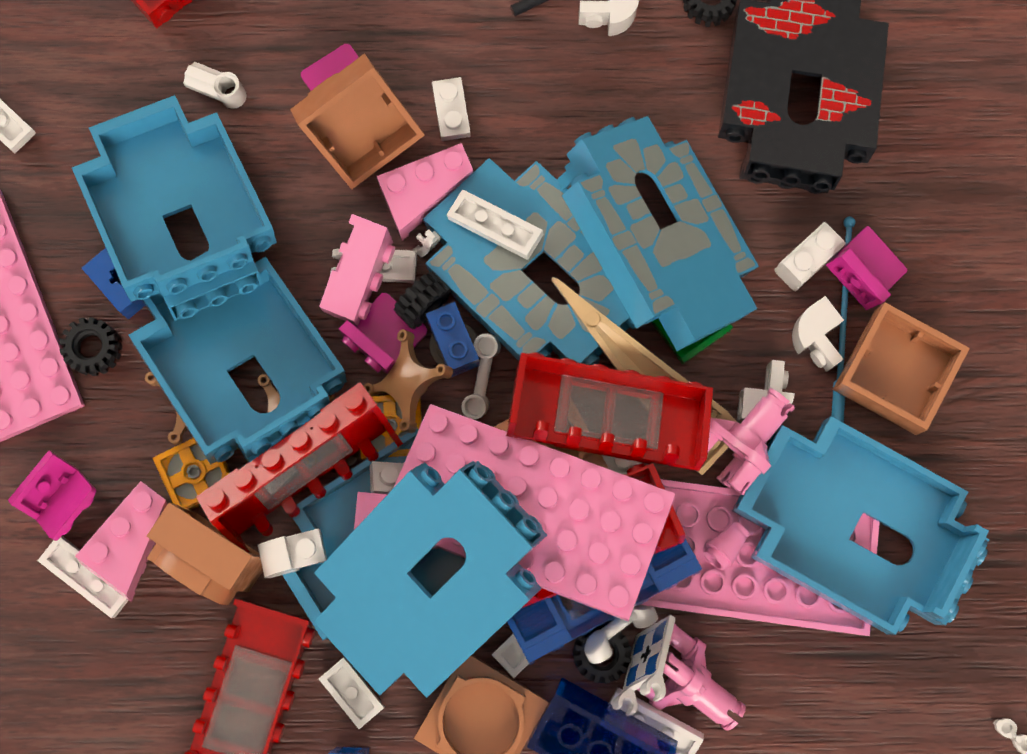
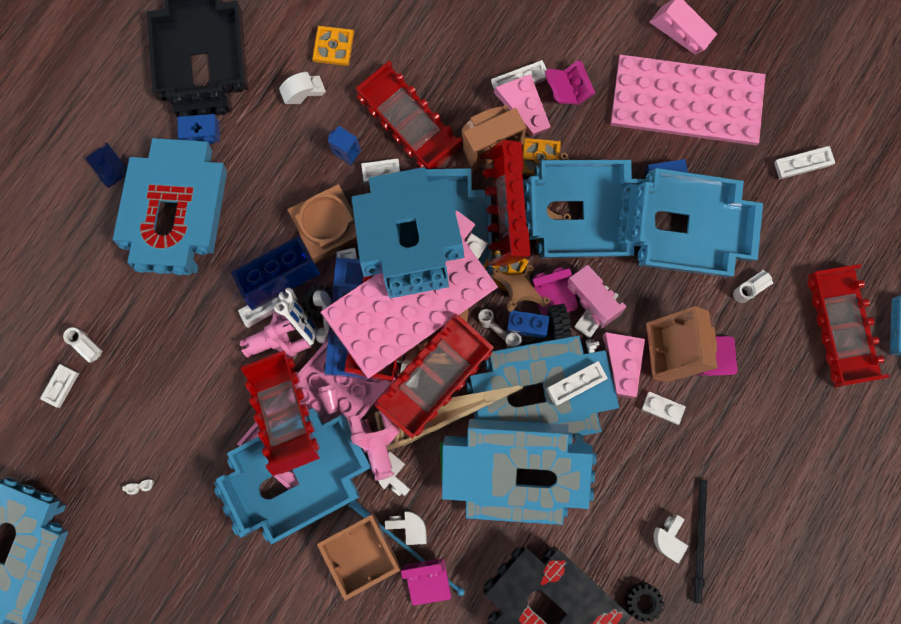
camera: 125 degrees right, 0 degrees up
(78, 333) = (642, 133): black tyre -> none
(291, 553) = (465, 176): white brick -> none
(793, 594) = (281, 413): none -> red window
(809, 256) = (454, 552): white brick -> none

